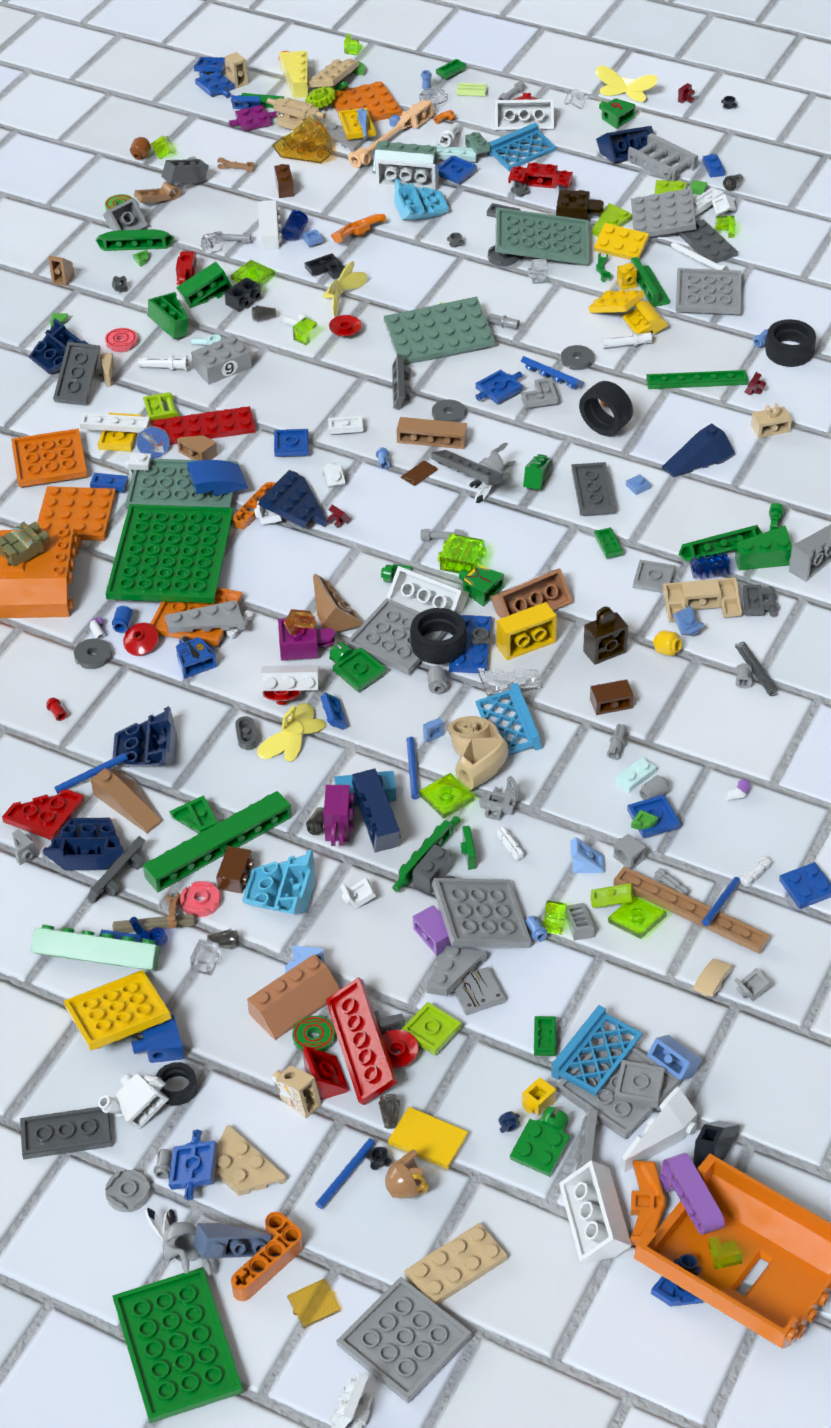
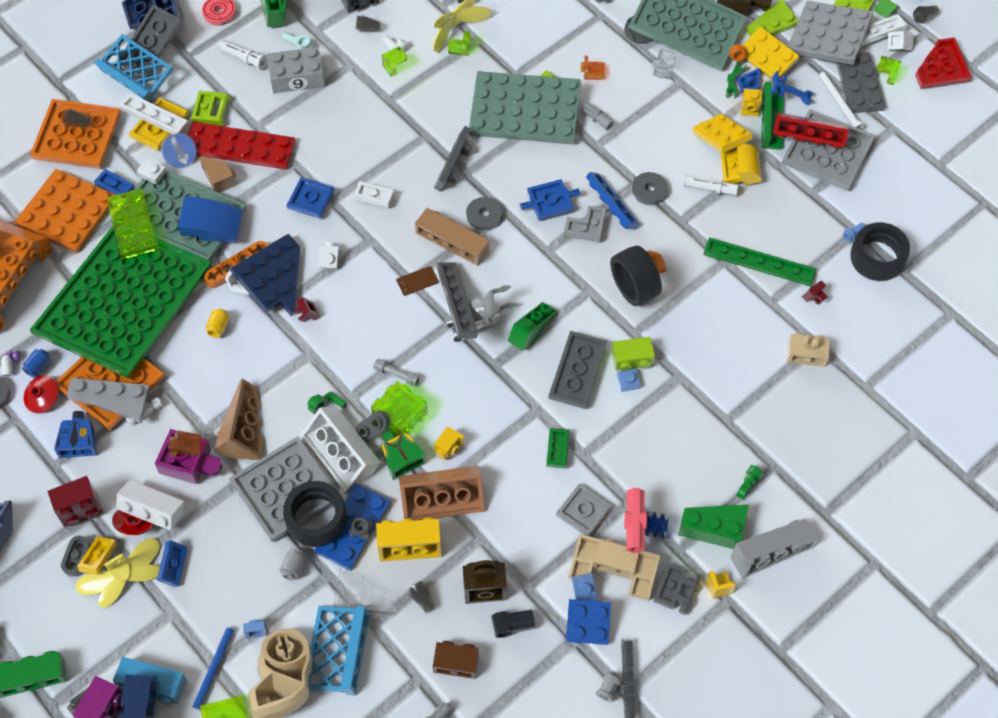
camera: 20 degrees right, 15 degrees up
(46, 443) = (75, 118): none -> clear smoke cone
(71, 407) = (123, 76): none -> dark azure fence
(107, 367) = (187, 39): tan slope -> none
(146, 500) = (132, 223): none -> clear neon green plate
(225, 692) = (75, 501): none -> dark red brick
(266, 546) = (217, 323): none -> yellow brick
(266, 724) = (97, 555): none -> yellow plate
(345, 325) = (436, 68): red dish -> none
(355, 306) = (459, 46): none -> clear neon green panel
(355, 666) = (223, 513): green plate -> none
(382, 455) = (389, 249): medium blue pin -> none
(447, 570) = (370, 427): none -> dark grey plate
(483, 292) = (593, 70): none -> clear orange bracket
(517, 565) = (448, 443): none -> yellow brick
(557, 667) = (421, 595): none -> clear smoke cone
(600, 246) = (738, 56): none -> orange plate
(613, 263) = (749, 80): none -> blue piece
(631, 464) = (633, 353): none -> lime brick
(639, 662) = (507, 623): none -> black piece
(644, 257) = (782, 88): none -> blue bar
(667, 643) = (549, 610): yellow head -> none
(689, 276) = (810, 129): none -> red brick
(702, 639) = (588, 621): none -> blue plate
(703, 558) = (635, 520): none -> coral piece
(704, 448) = (719, 361): dark blue wedge -> none
(717, 543) = (677, 496): green brick -> none
(768, 212) = (943, 65): none -> red plate
(791, 588) = (720, 584): none -> yellow panel

